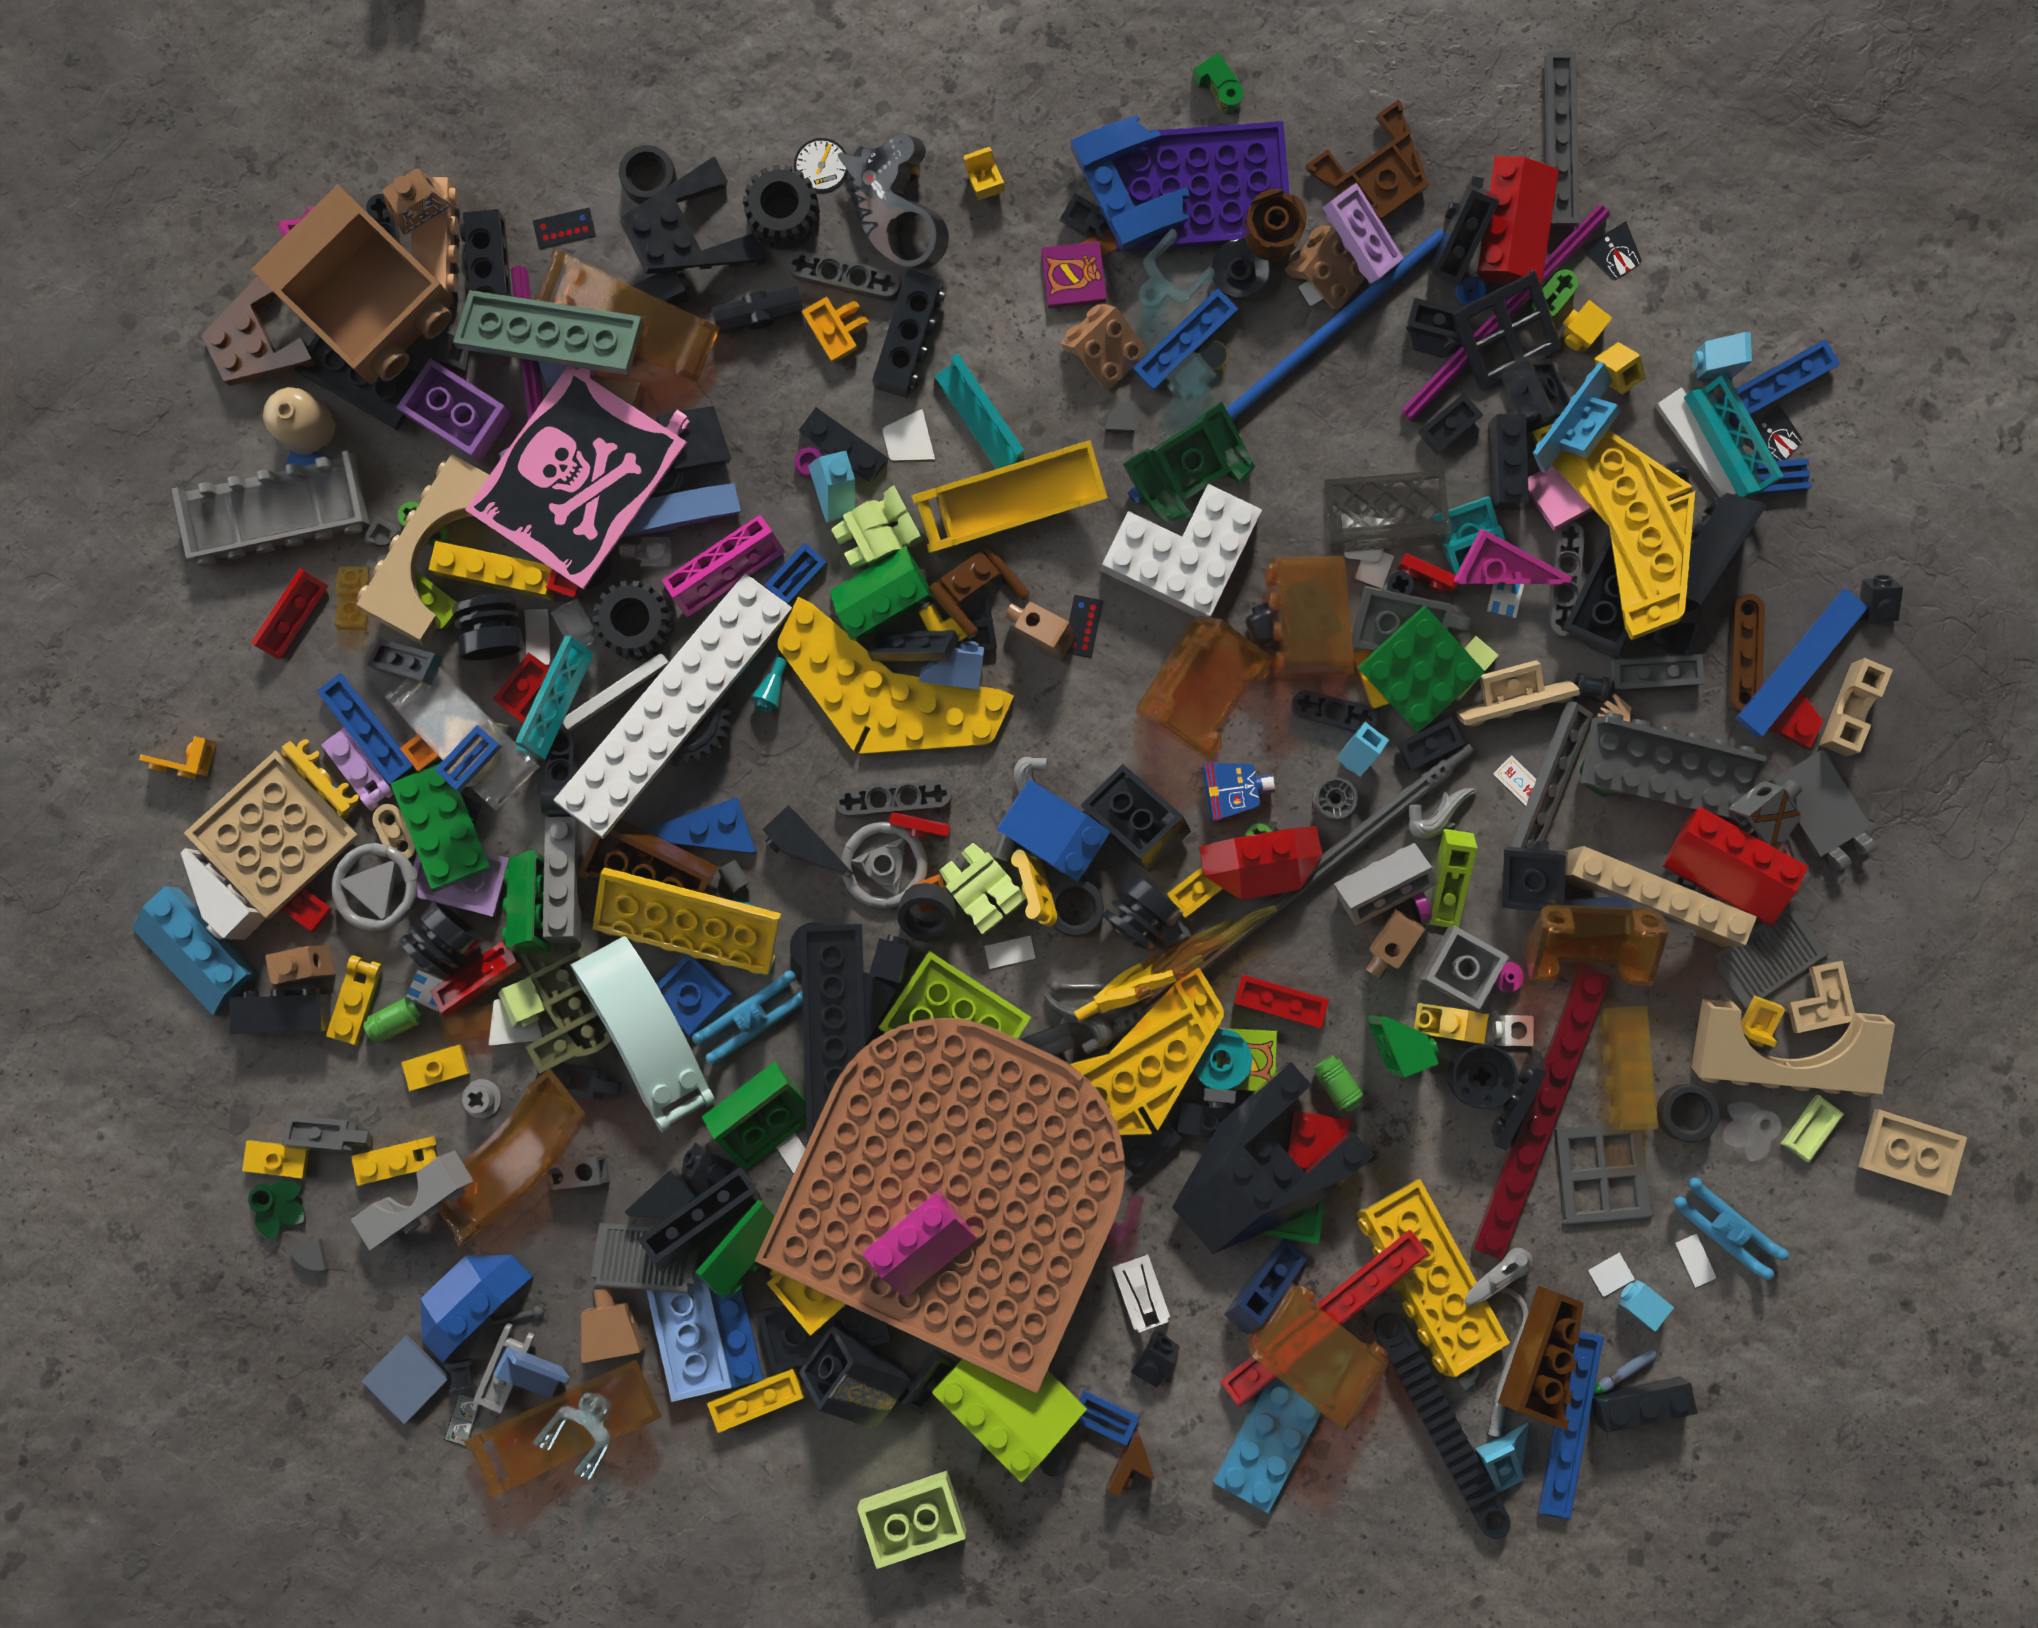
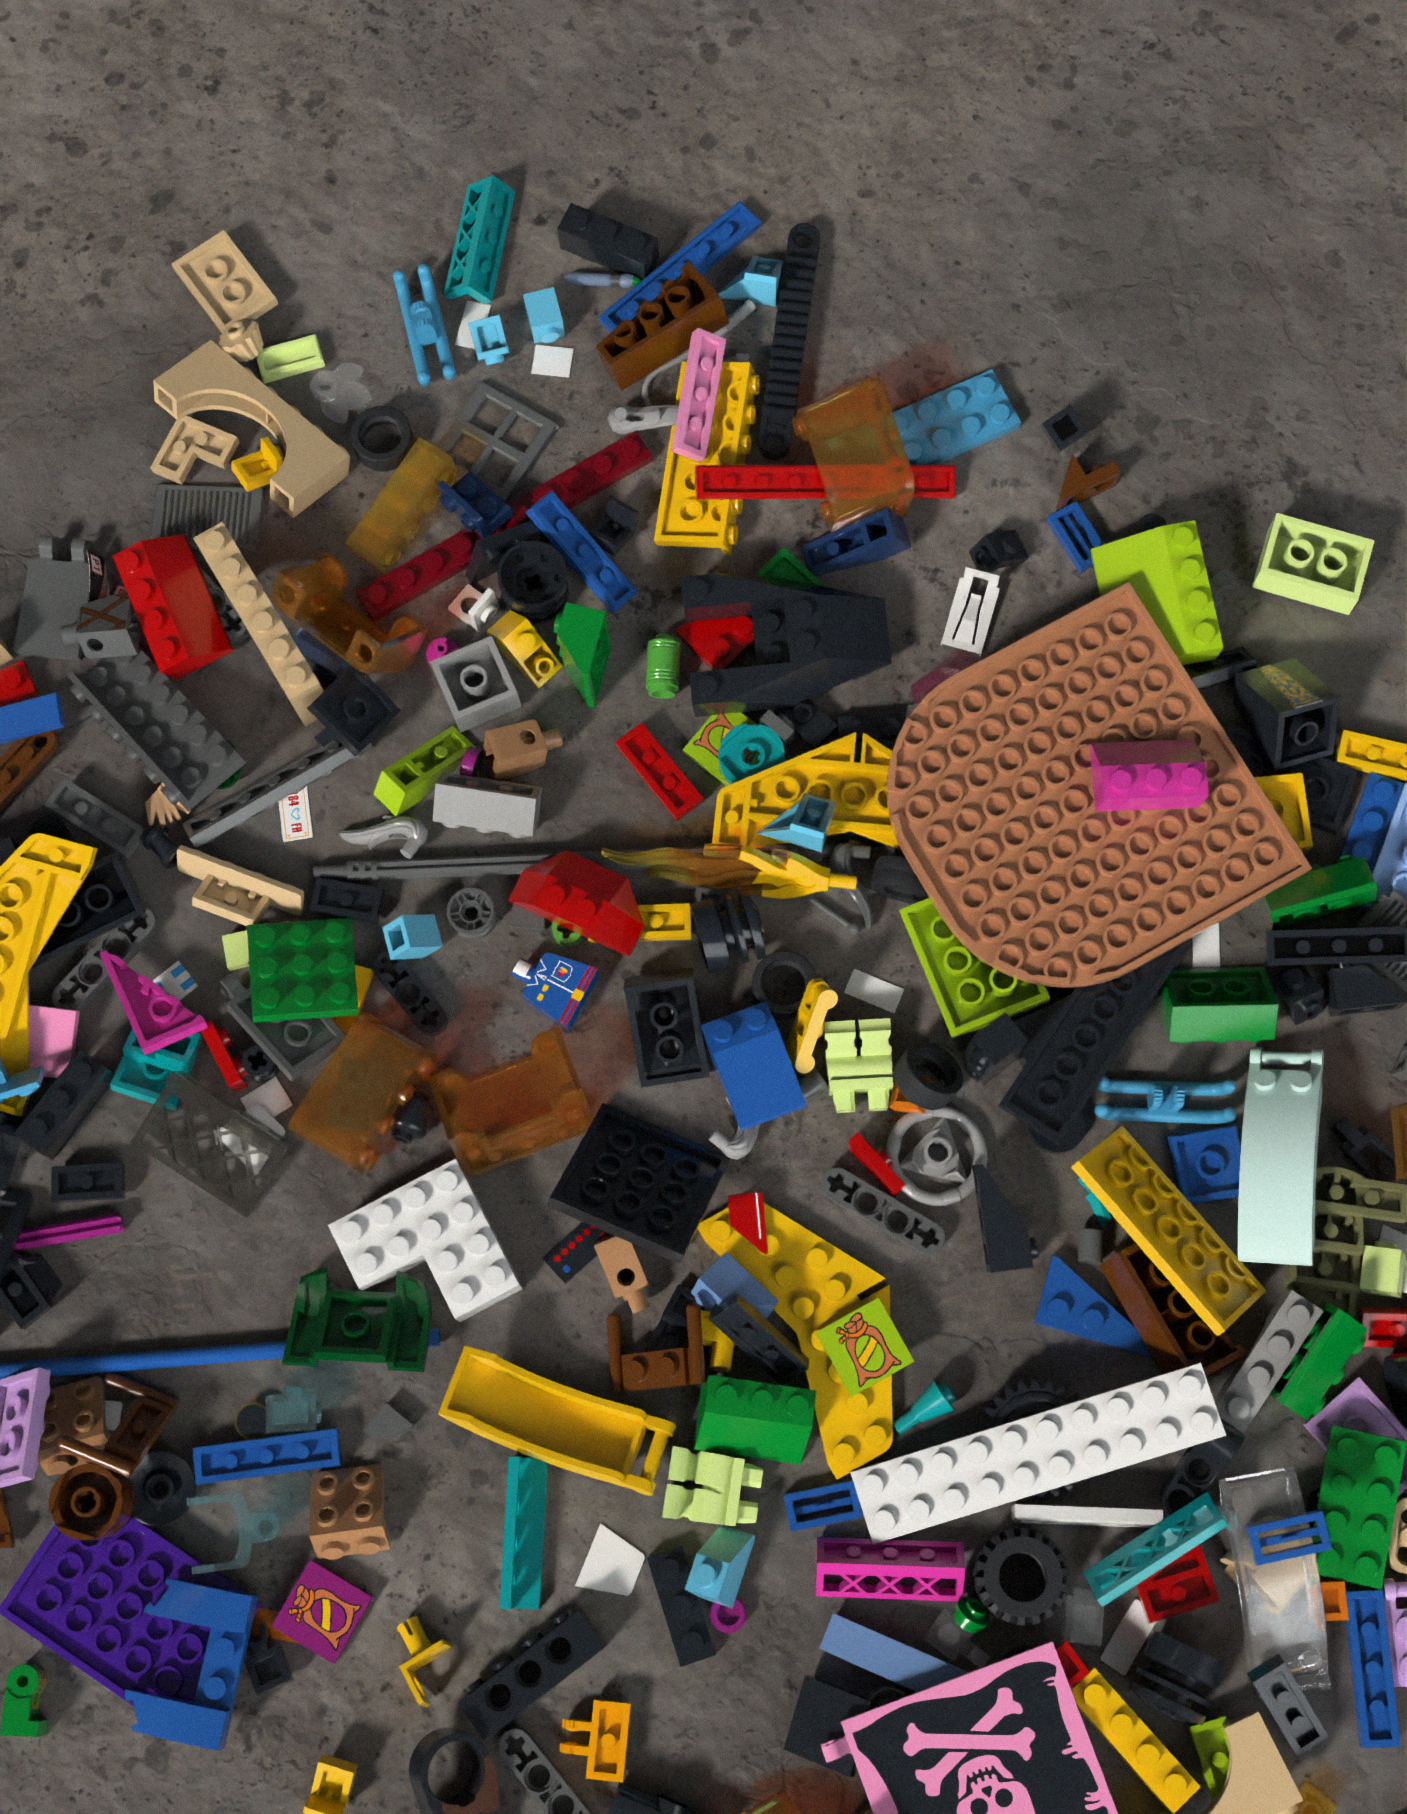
camera: 140 degrees left, 10 degrees down
(650, 573) = (971, 1614): none -> green plate
(839, 694) = (864, 1347): none -> lime tile
(980, 724) = (748, 1218): none -> red sticker
(989, 295) = (422, 1654): none -> yellow bracket
(1071, 690) = (639, 1183): none -> black plate
(1145, 1032) = (803, 823): none -> medium azure slope
(1175, 1497) = (1064, 429): none -> black brick
(1282, 287) = (134, 1433): none -> reddish brown plate
(1457, 1167) = (615, 526): none -> black bracket
(1465, 1127) = (581, 552): none -> blue tile
(1473, 1319) = (698, 395): none -> bright pink plate
(1574, 1109) = (475, 504): none -> dark blue bracket
(1671, 1253) = (489, 339): none -> medium azure bracket
(1743, 1337) = (483, 239): none -> teal fence
(1808, 848) = (98, 577): none -> sticker
(1859, 1113) = (242, 340): none -> tan piece

